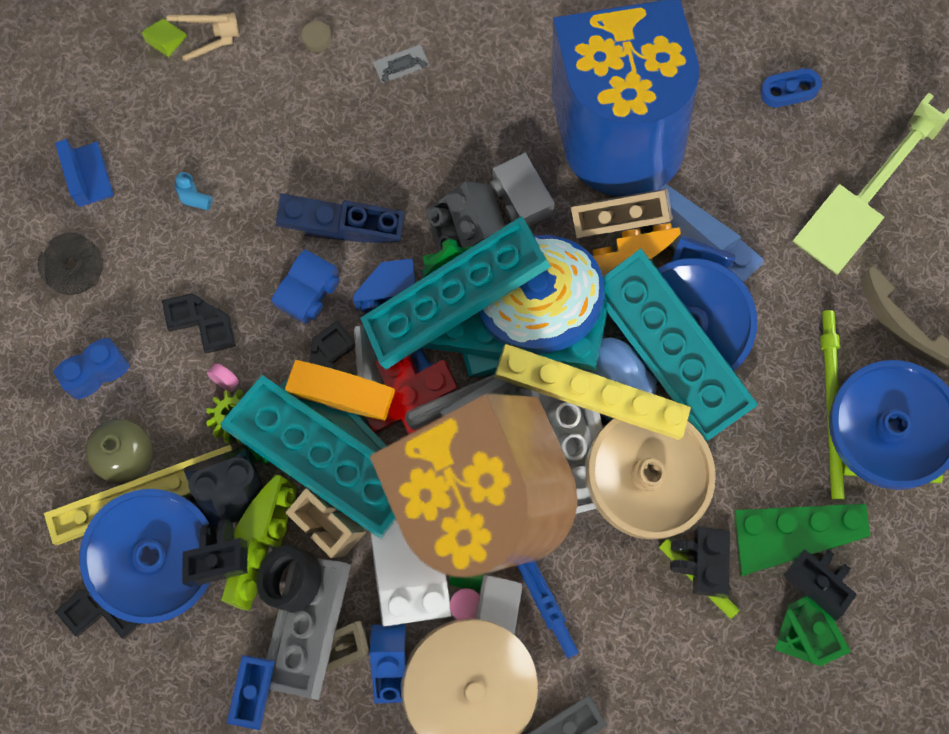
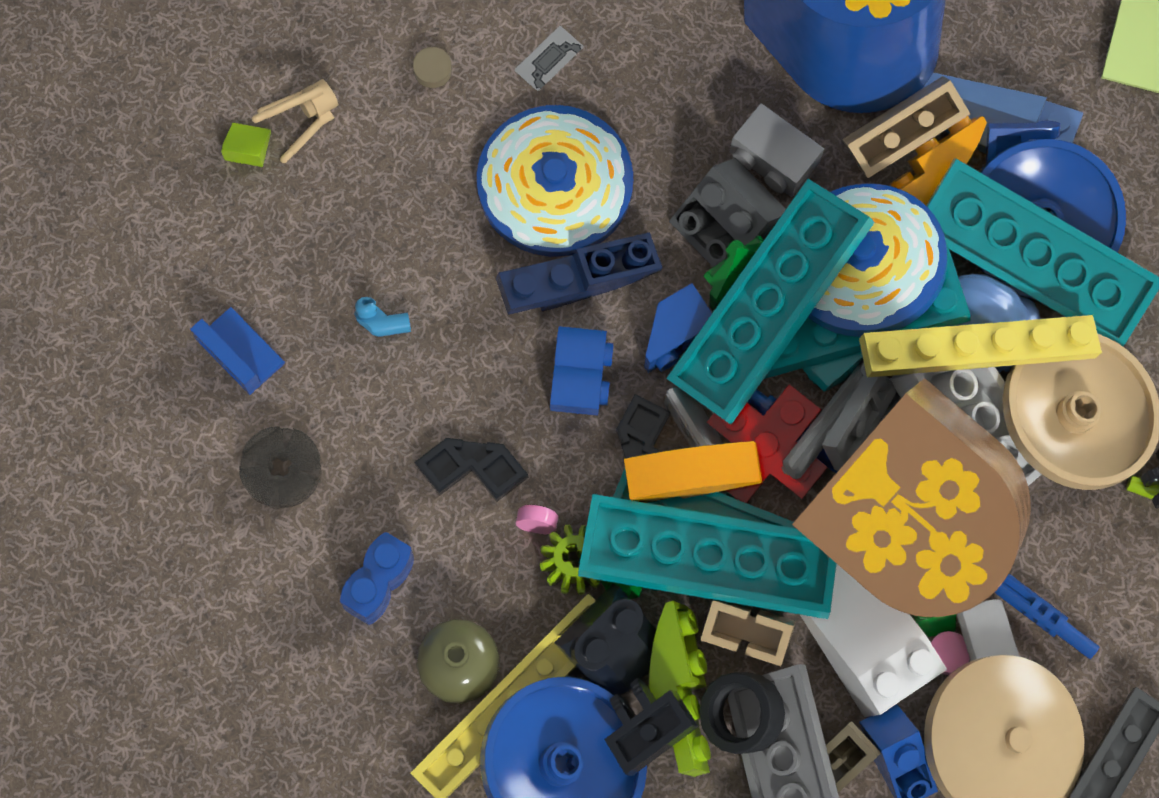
camera: 30 degrees left, 0 degrees up
(360, 148) = (554, 180): none -> dish

